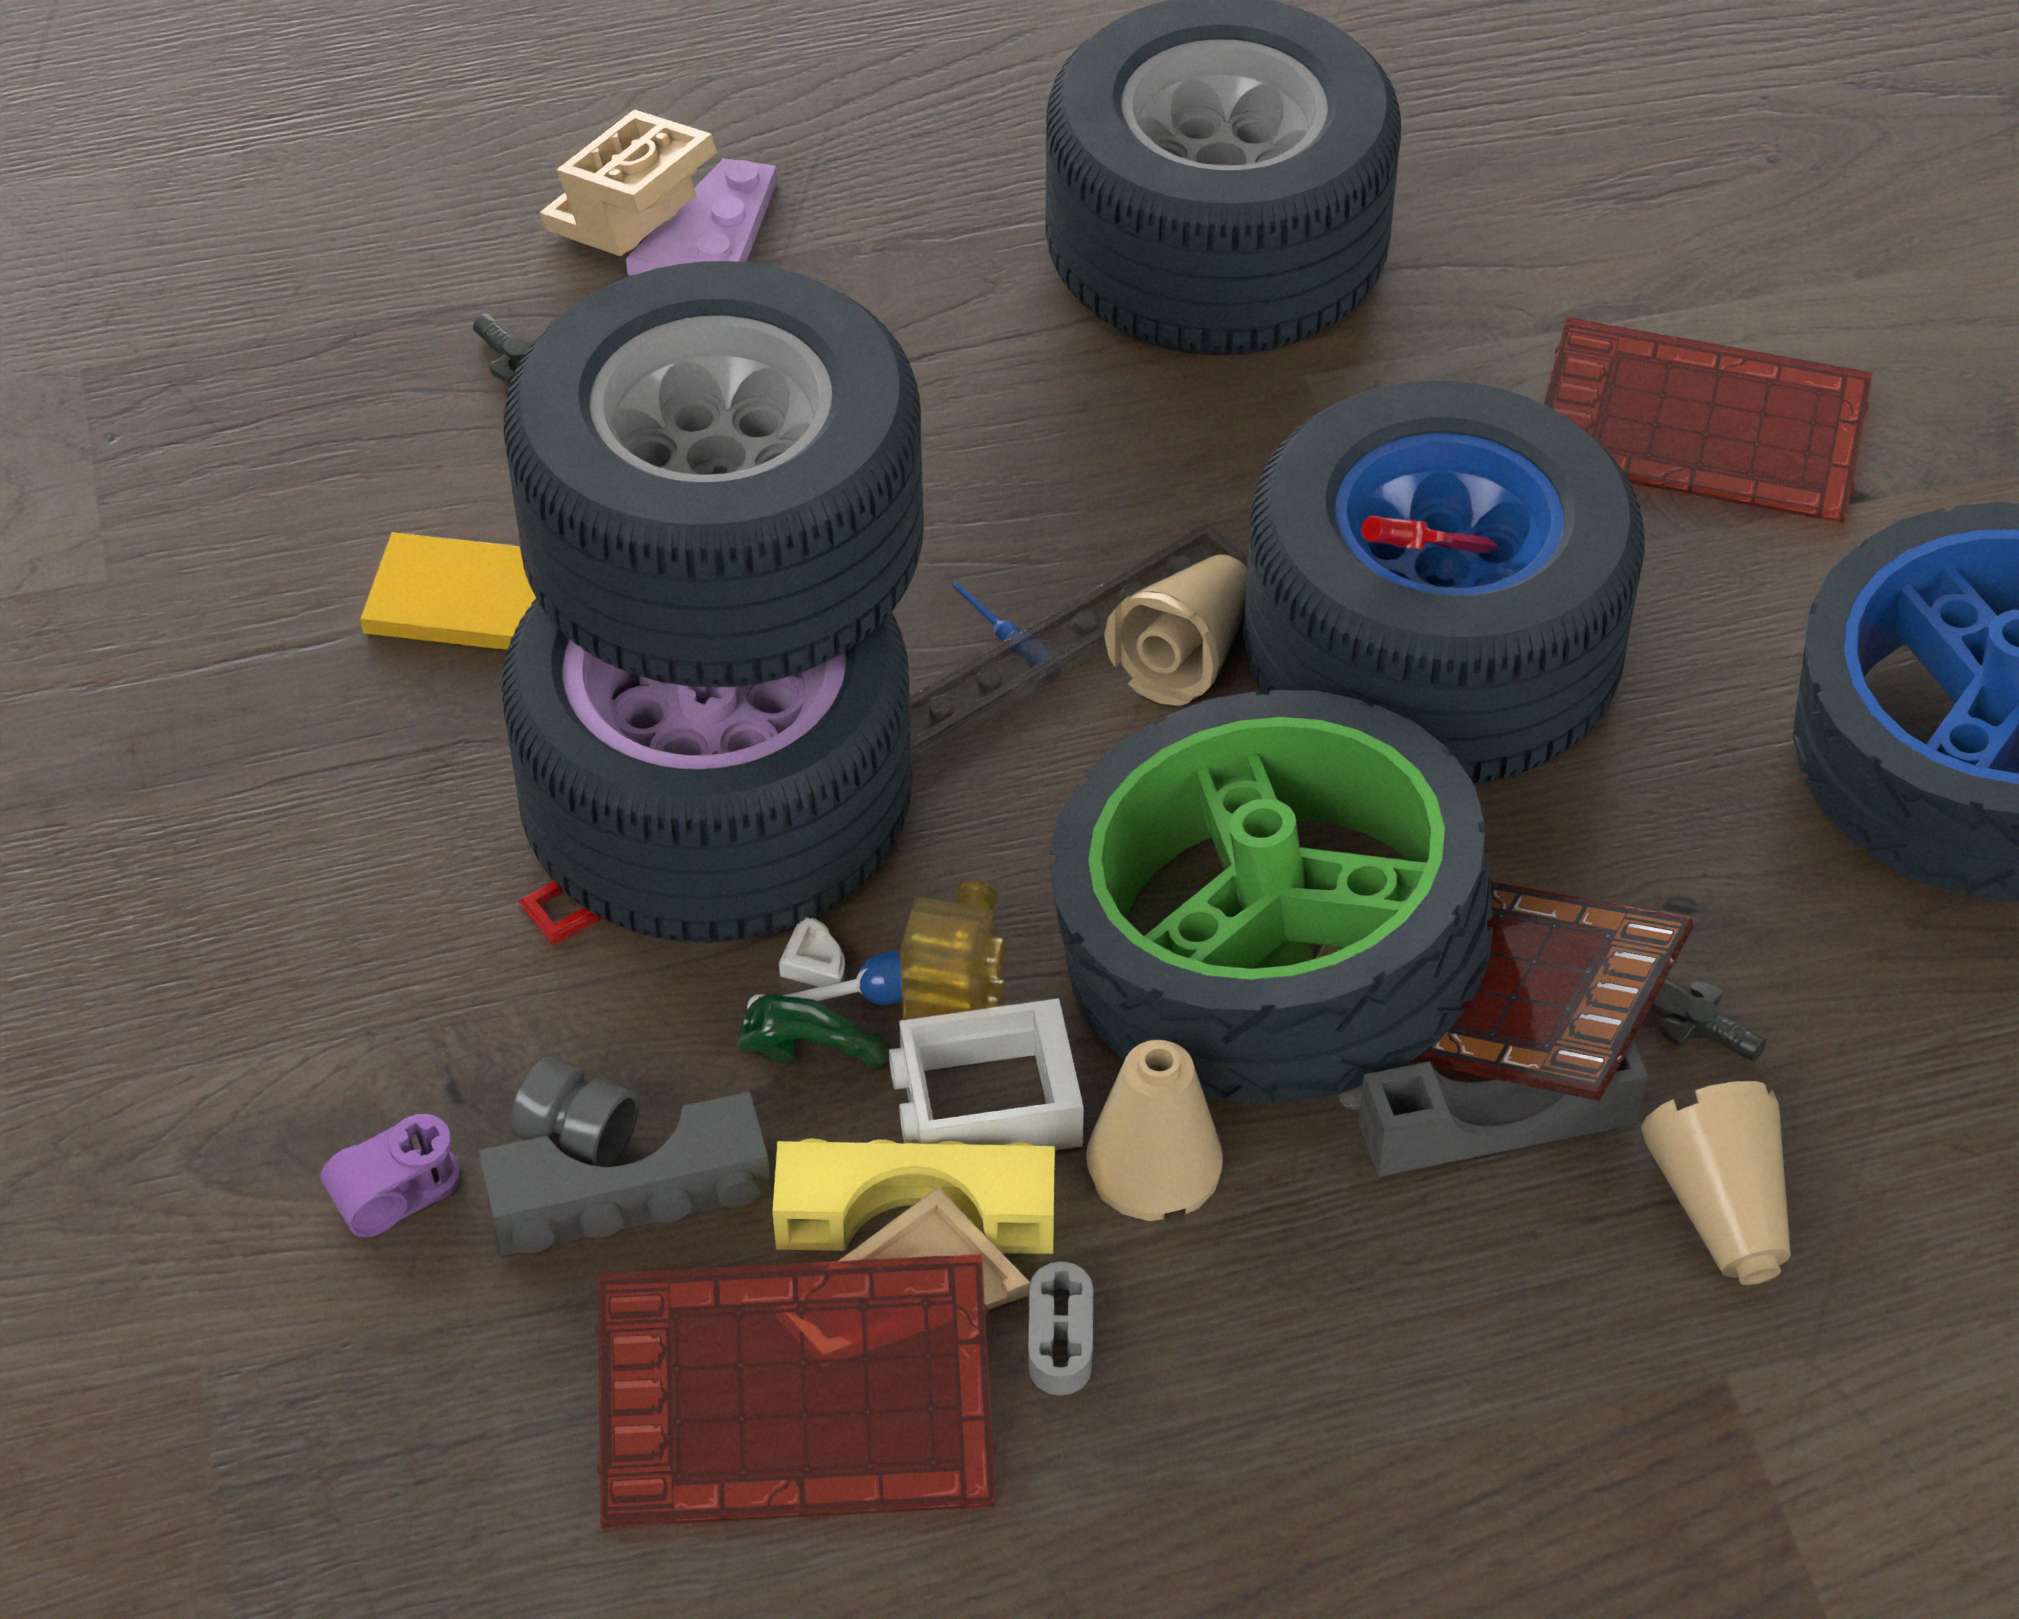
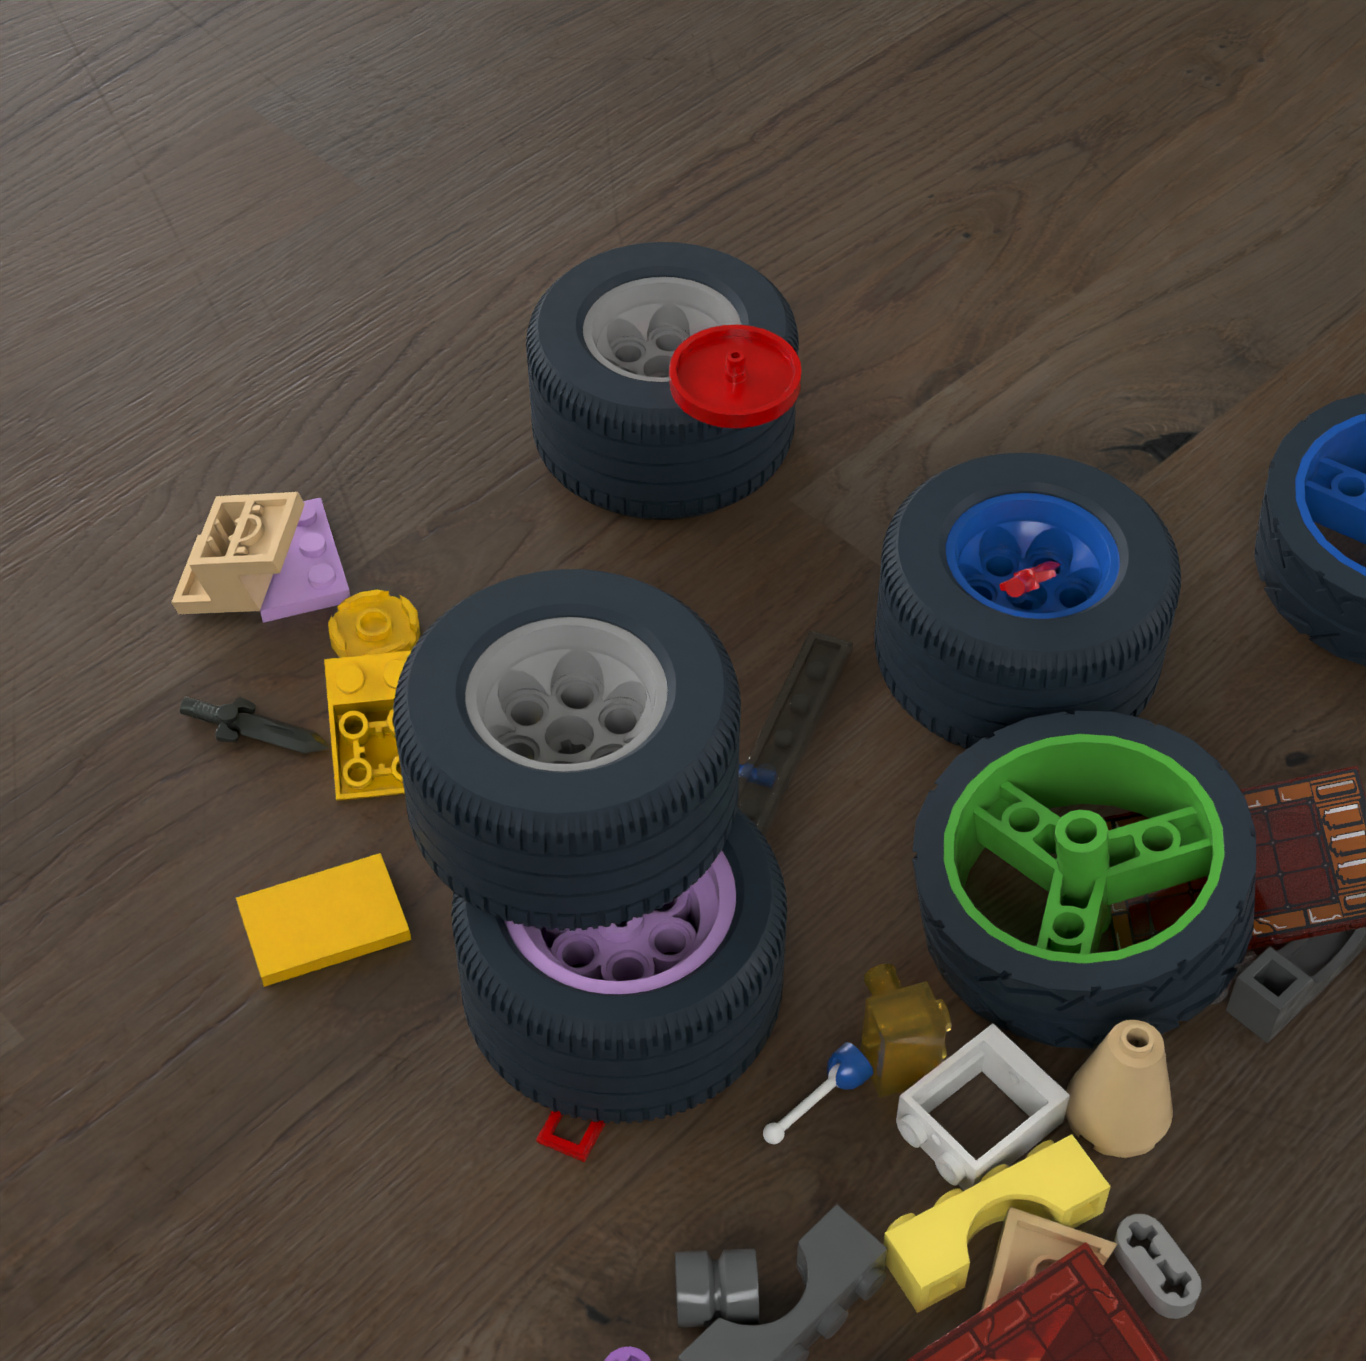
camera: 30 degrees left, 0 degrees up
(778, 1021) = (802, 1140): dark green piece -> none
(813, 955) = (783, 1076): white tile -> none
(1179, 630) = (863, 716): tan cone -> none
(1255, 183) = (735, 376): none -> red piece
(1714, 417) = (1083, 410): clear red piece -> none

